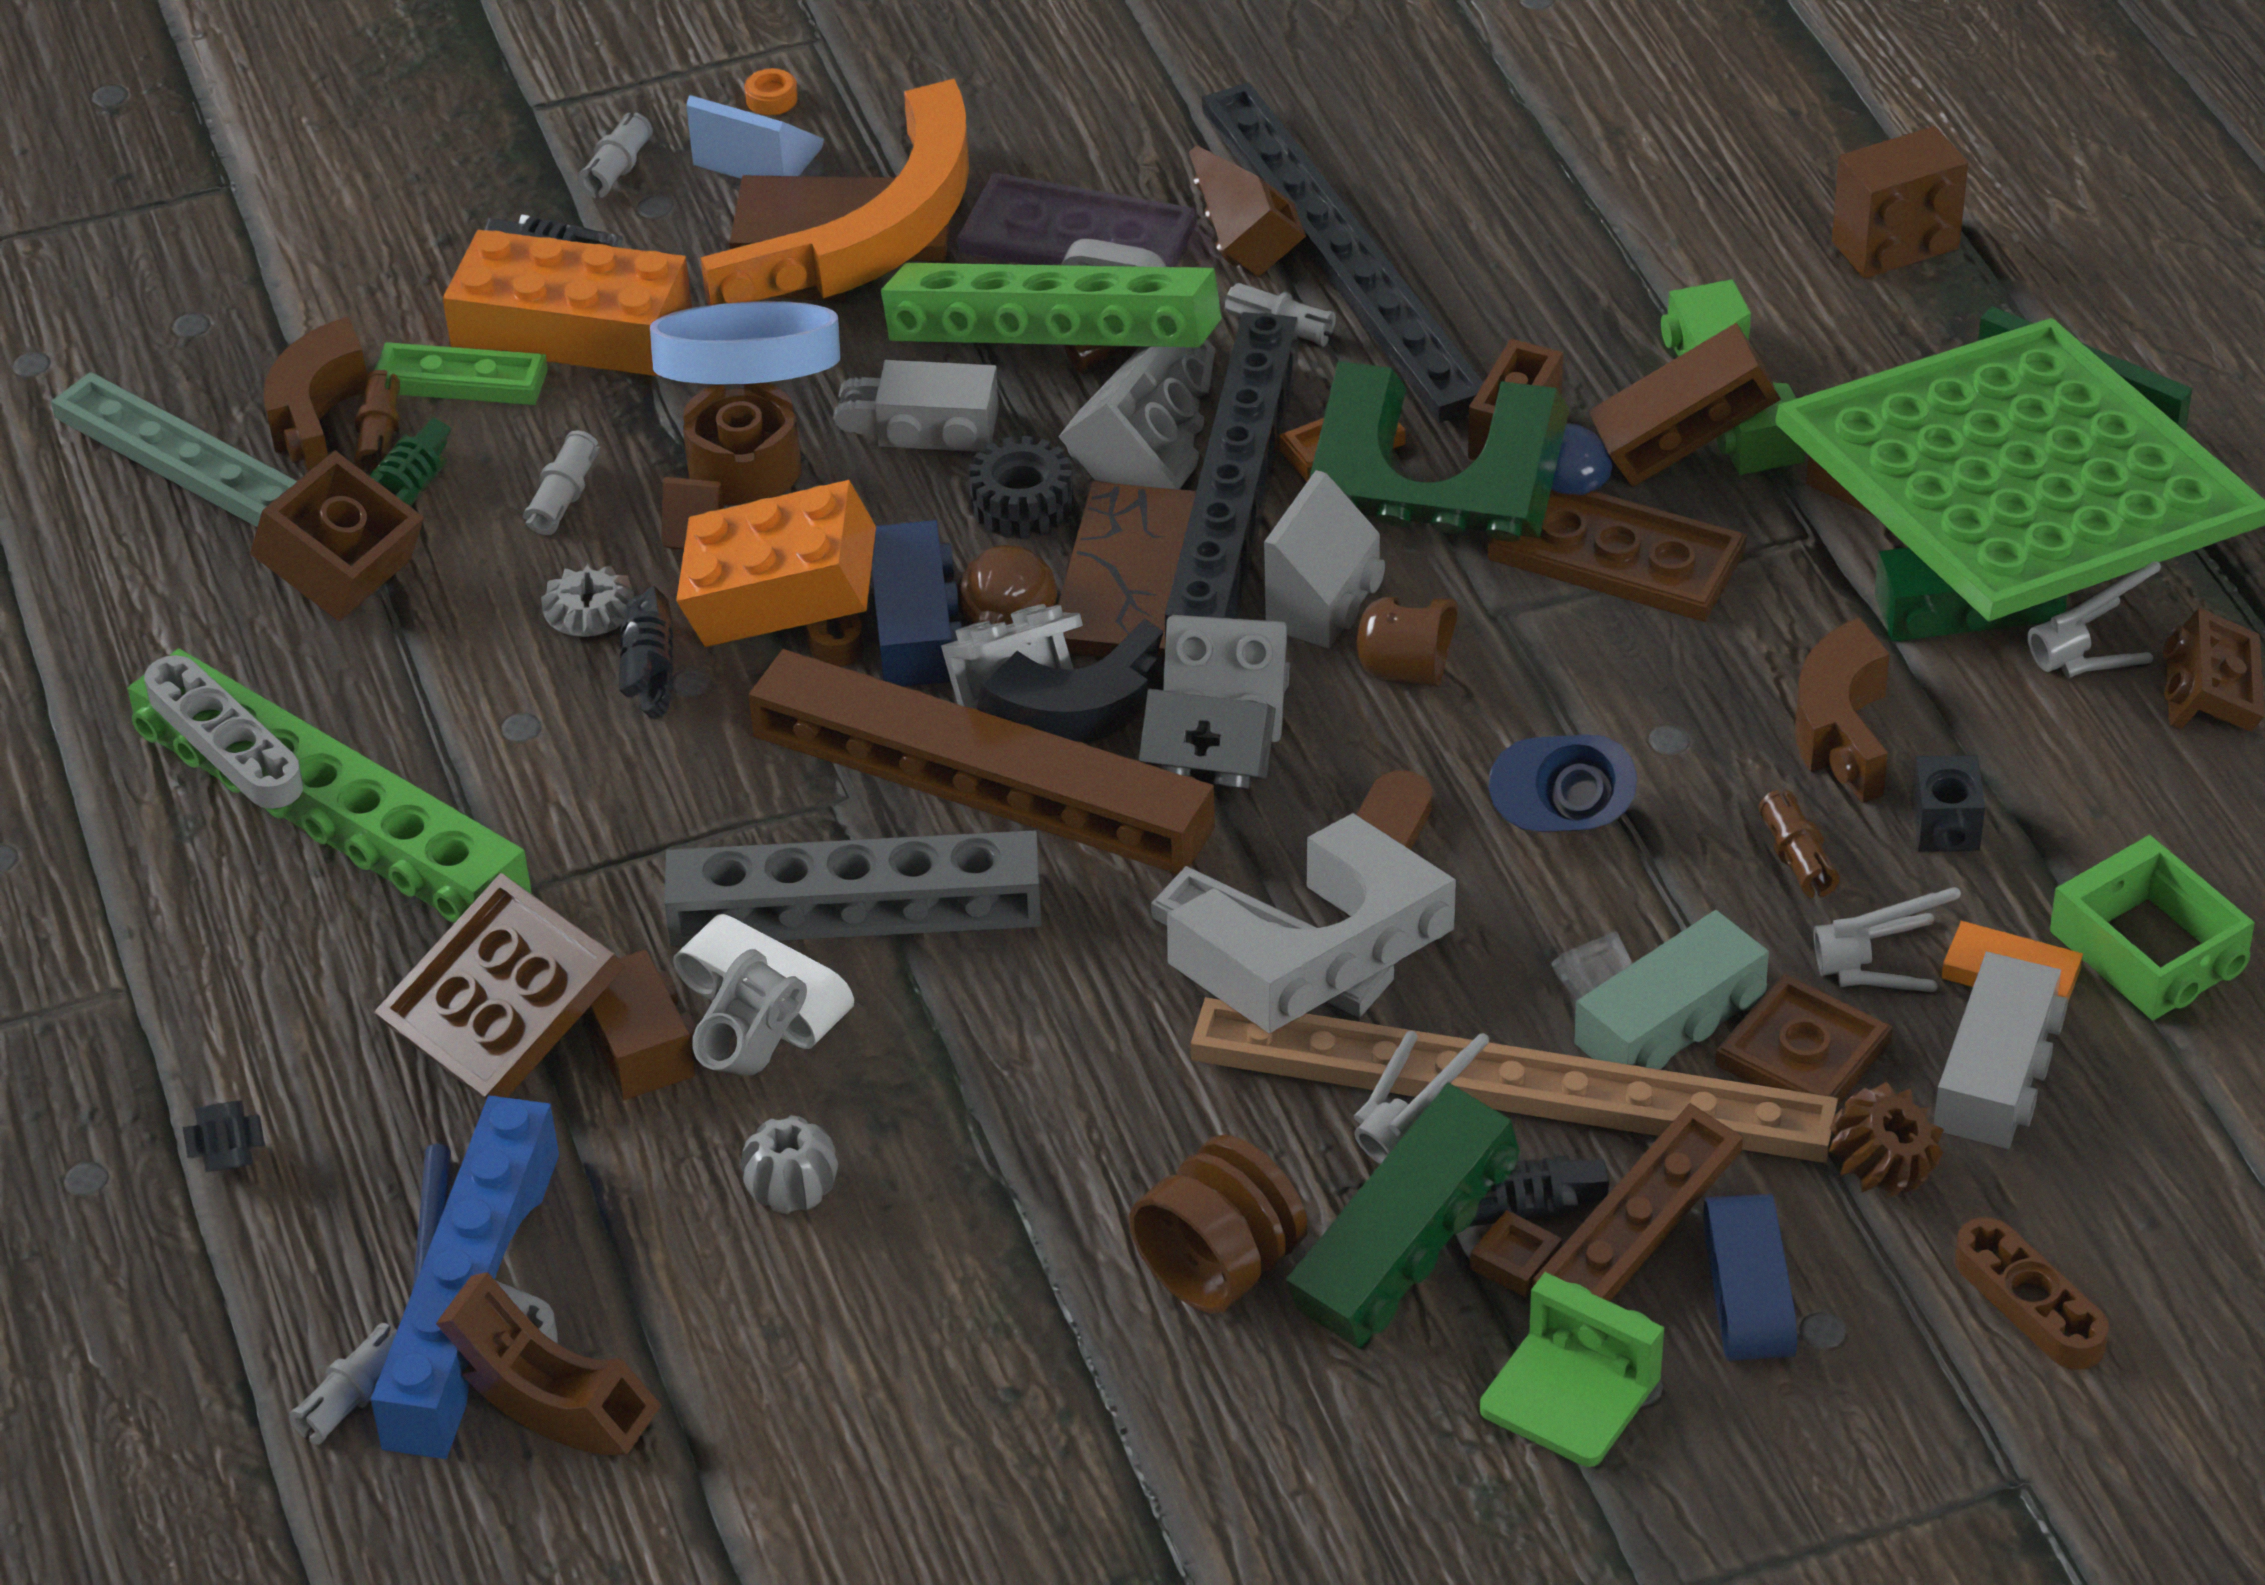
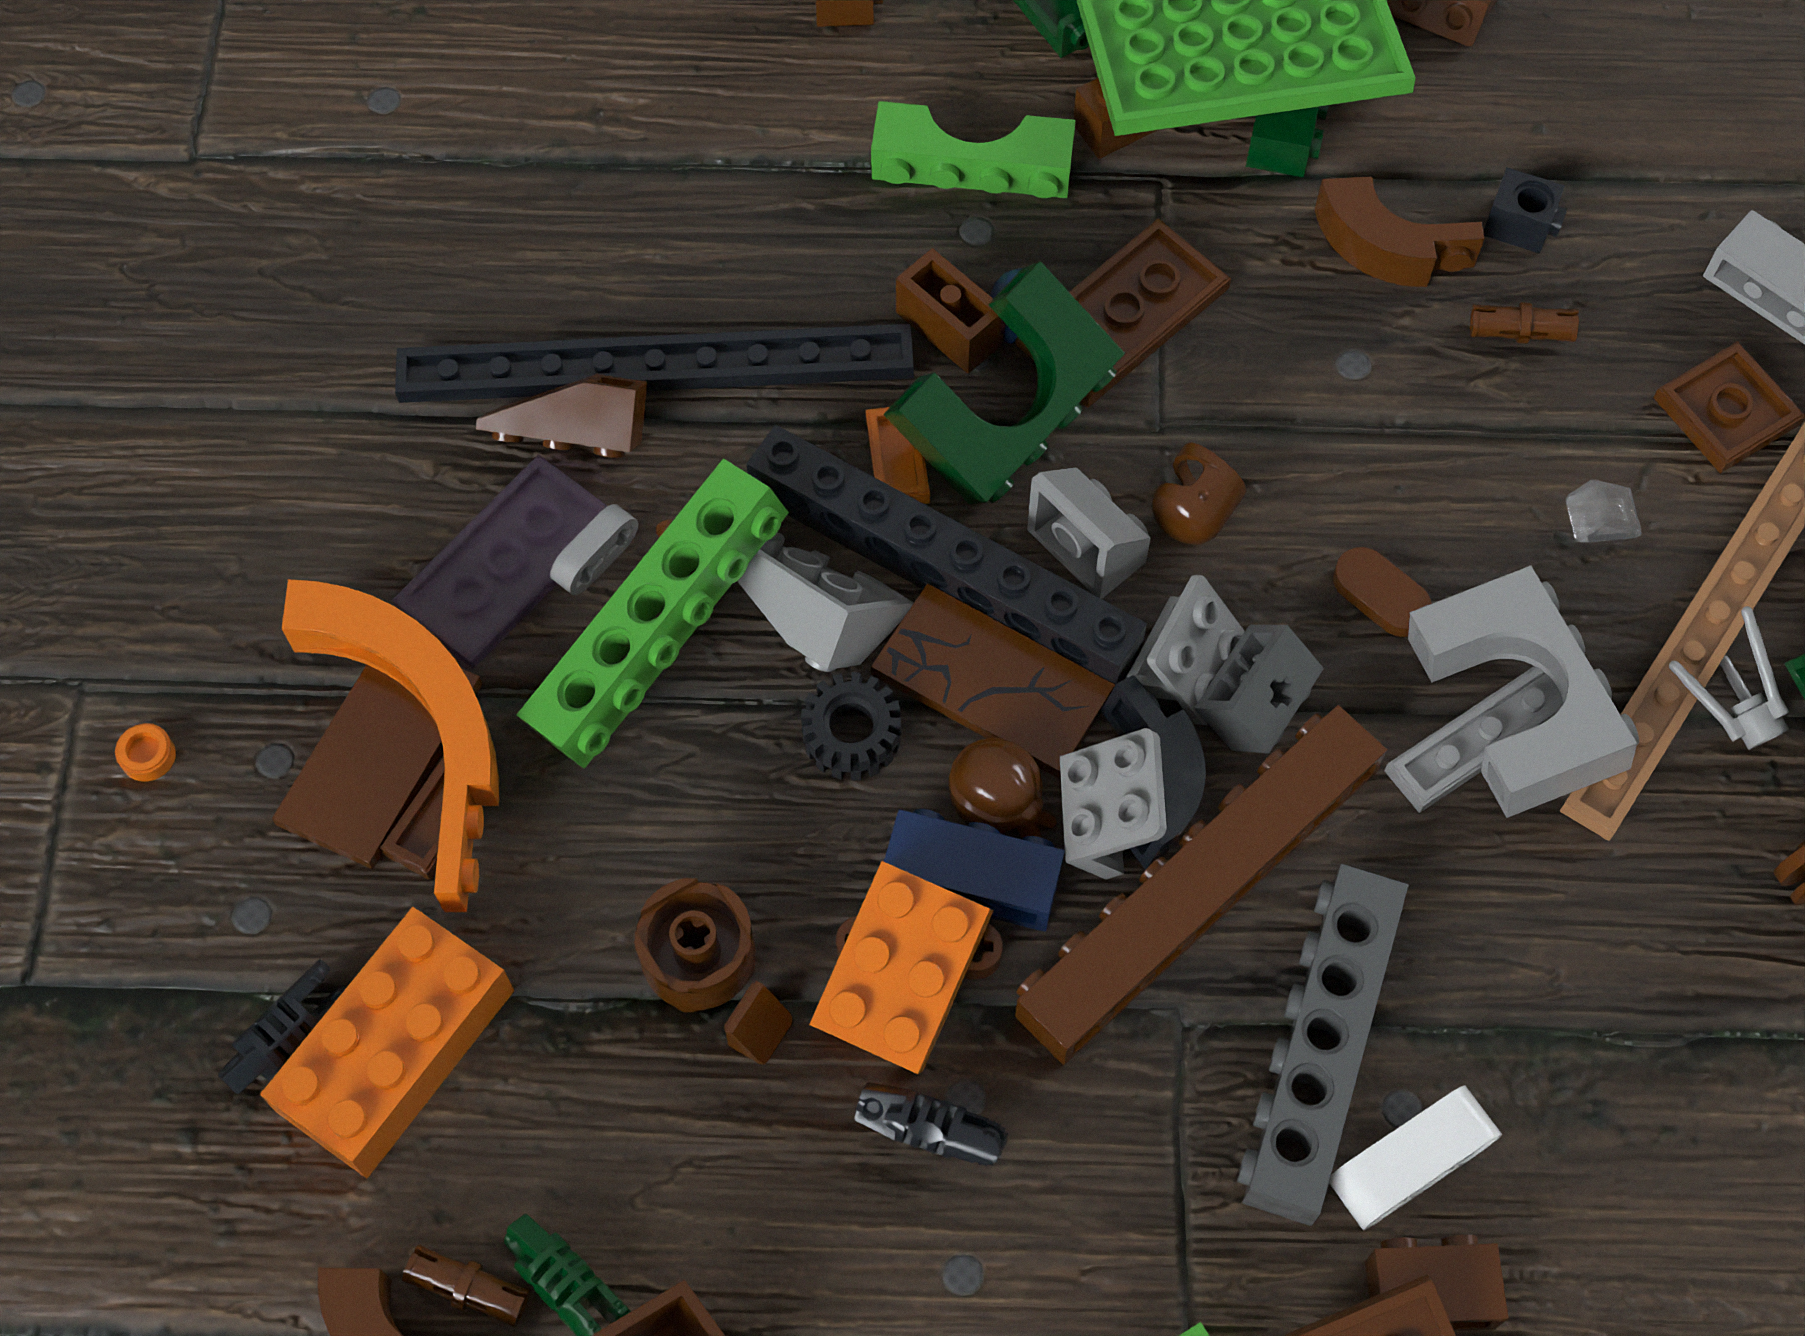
camera: 70 degrees left, 20 degrees up
(464, 373) = (420, 1182): bright green tile -> none
(561, 482) = (649, 1130): light grey pin -> none
(606, 612) = (839, 1180): light grey gear -> none
(615, 155) = (169, 926): light grey pin -> none
(745, 342) = (519, 856): light blue piece -> none
(746, 142) = (227, 792): light blue slope -> none
(750, 1010) = (1496, 1185): light grey piece -> none
(789, 1164) = (1670, 1187): light grey piece -> none
(923, 405) = (707, 767): light grey hinge -> none
(1311, 320) = (717, 441): light grey axle -> none
(1563, 783) = (1426, 448): dark blue piece -> none
(1673, 995) = (1670, 471): sand green brick -> none
(1684, 405) = (1022, 189): reddish brown brick -> none
(1847, 943) = (1649, 338): light grey plant -> none
(1973, 941) = (1690, 243): orange tile -> none
(2124, 881) = (1658, 161): bright green window -> none

